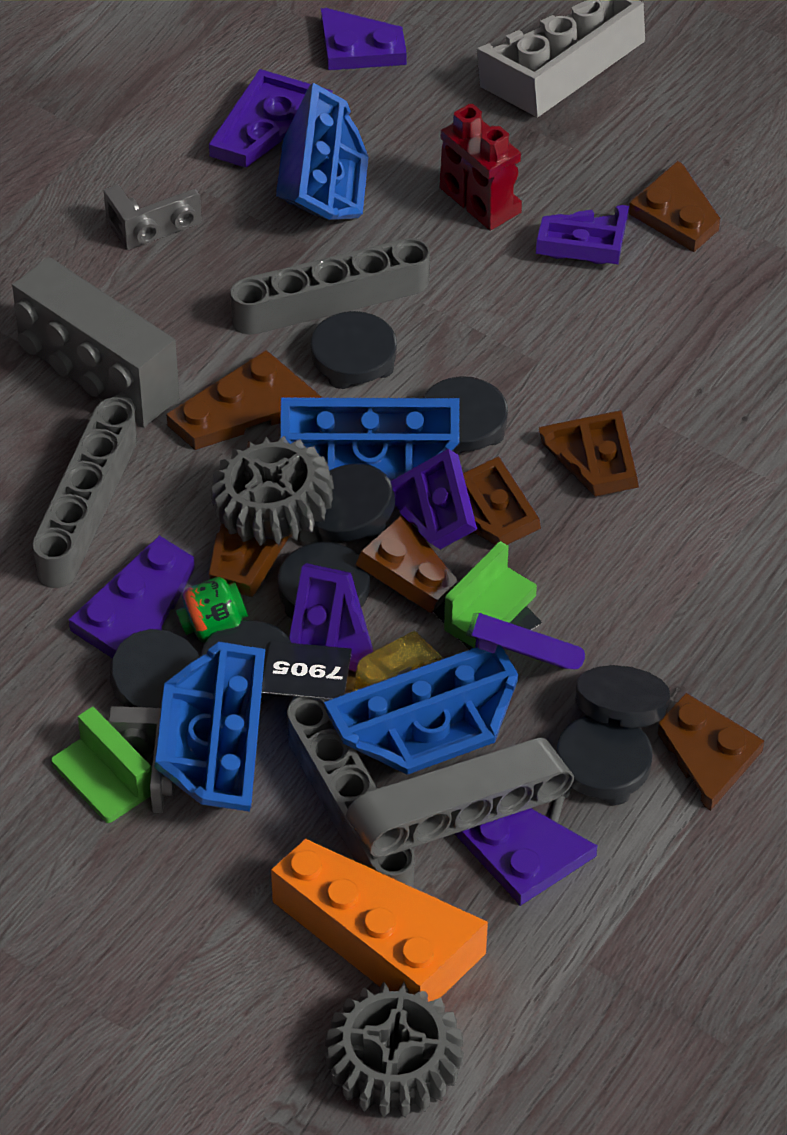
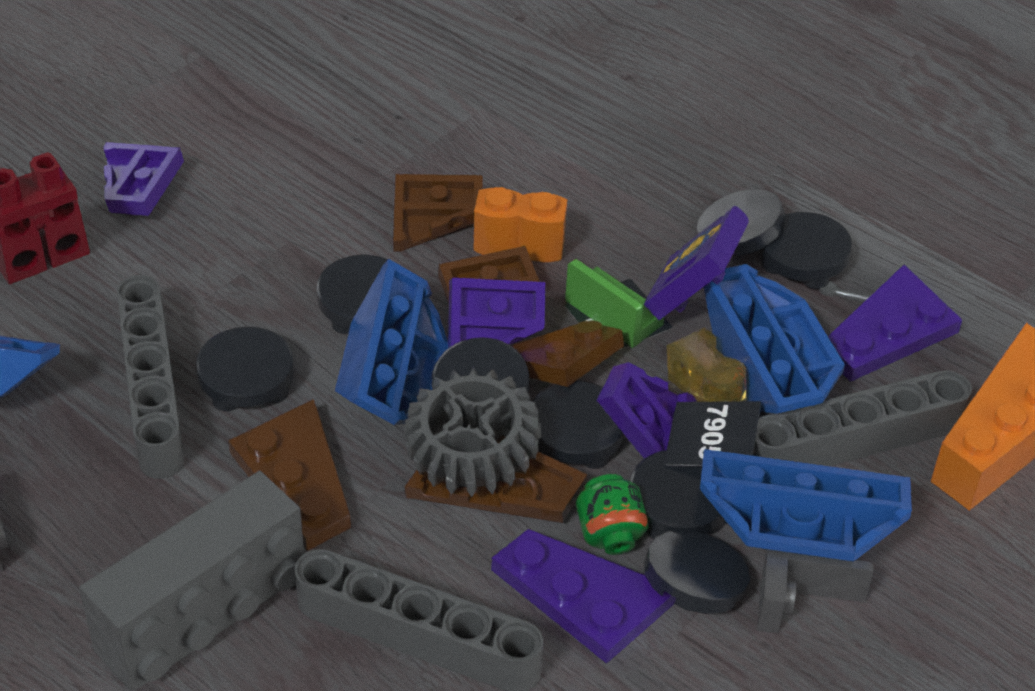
camera: 85 degrees left, 5 degrees down
(104, 768) = (816, 631): bright green panel -> none
(459, 797) = (888, 328): dark grey beam -> none
(574, 515) = (515, 220): none -> orange brick
(677, 208) = (115, 114): reddish brown wing -> none
(708, 747) = (795, 183): reddish brown wing -> none

